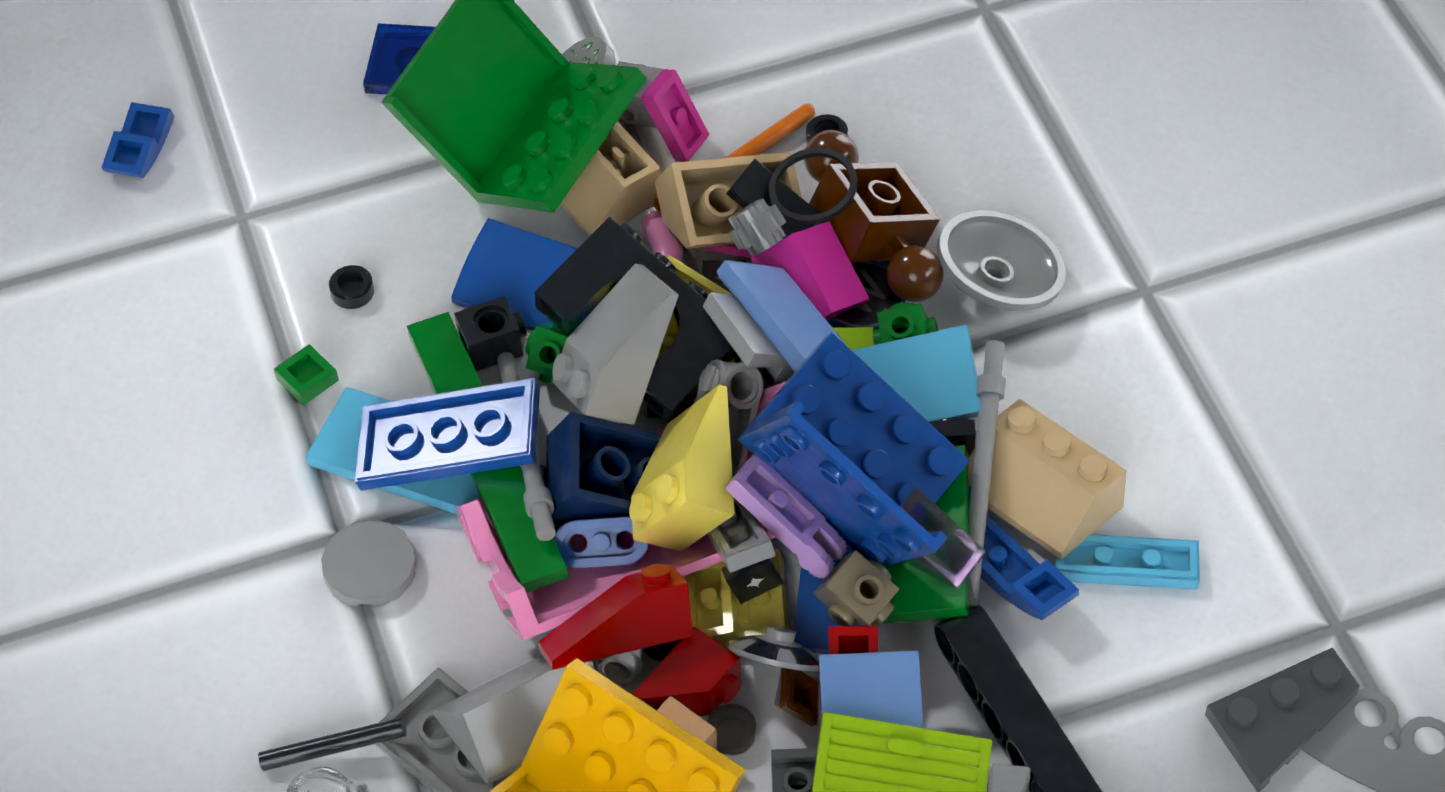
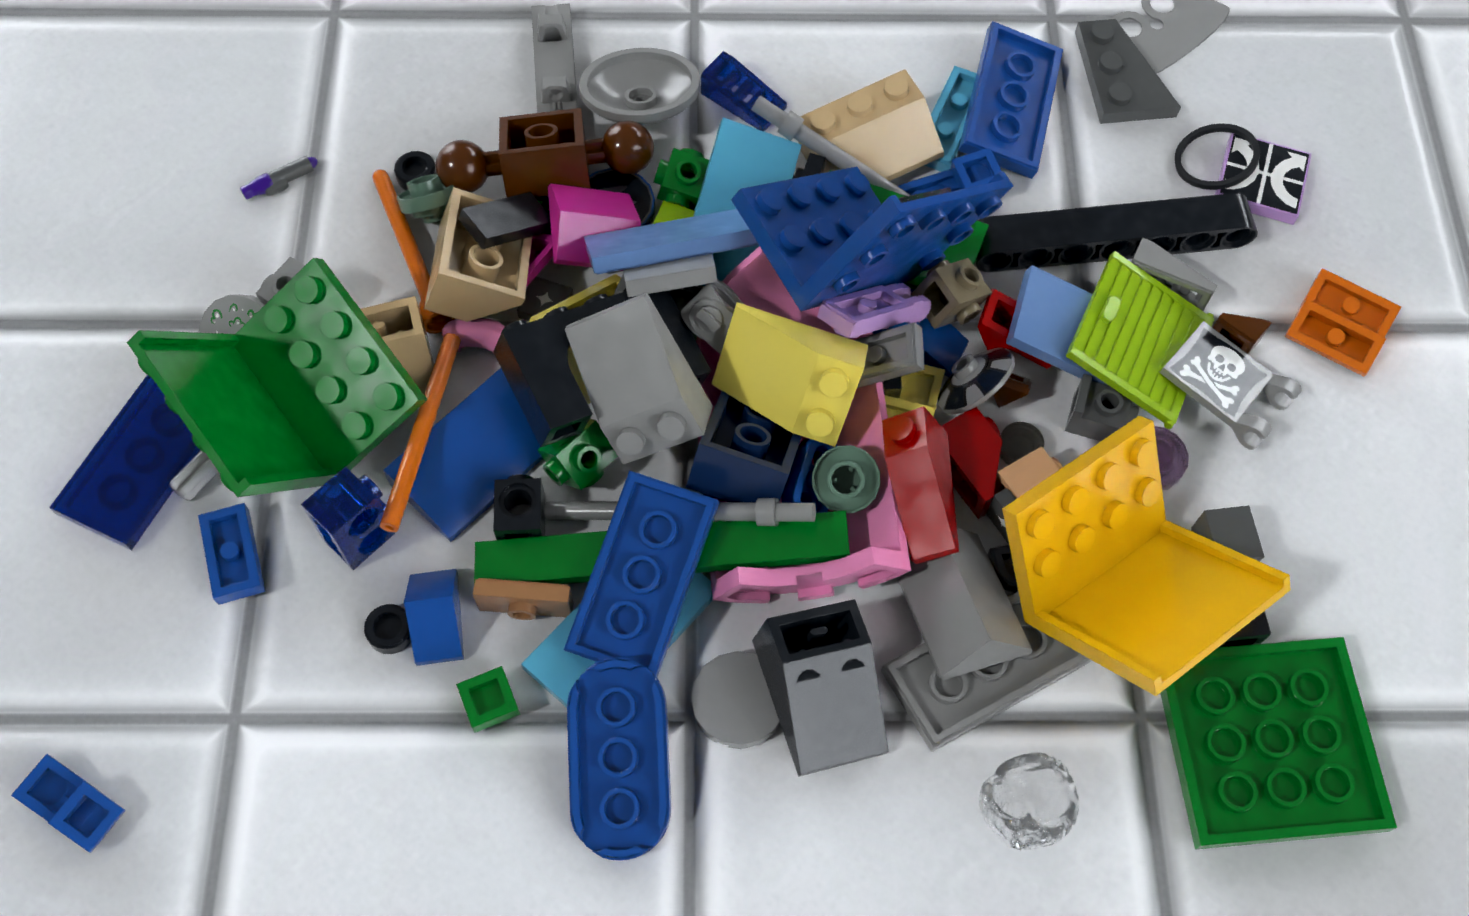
camera: 75 degrees left, 10 degrees up
(279, 482) = (618, 759): none -> blue tile
(332, 744) = (940, 784): black bar -> none
(372, 309) = (434, 617): none -> blue slope
(377, 154) = (231, 553): none -> blue plate
(391, 613) = (823, 685): none -> slope
(404, 363) = (523, 599): none -> medium nougat plate
(428, 209) = (349, 516): none -> clear blue brick
(528, 227) = (420, 434): none -> orange piece
(601, 558) = (846, 479): none -> sand green plate
(675, 115) = (349, 270): dark pink plate -> none
(757, 227) = (535, 236): light grey gear -> none
(767, 40) = (277, 180): none -> dark grey piece
(787, 139) = (425, 198): none -> sand green plate
(808, 153) = (513, 138): black piece -> none
(1016, 190) = (554, 58): none -> light grey hinge
(1061, 331) = (726, 73): none -> clear blue slope
(1179, 607) = (1012, 99): none -> blue tile

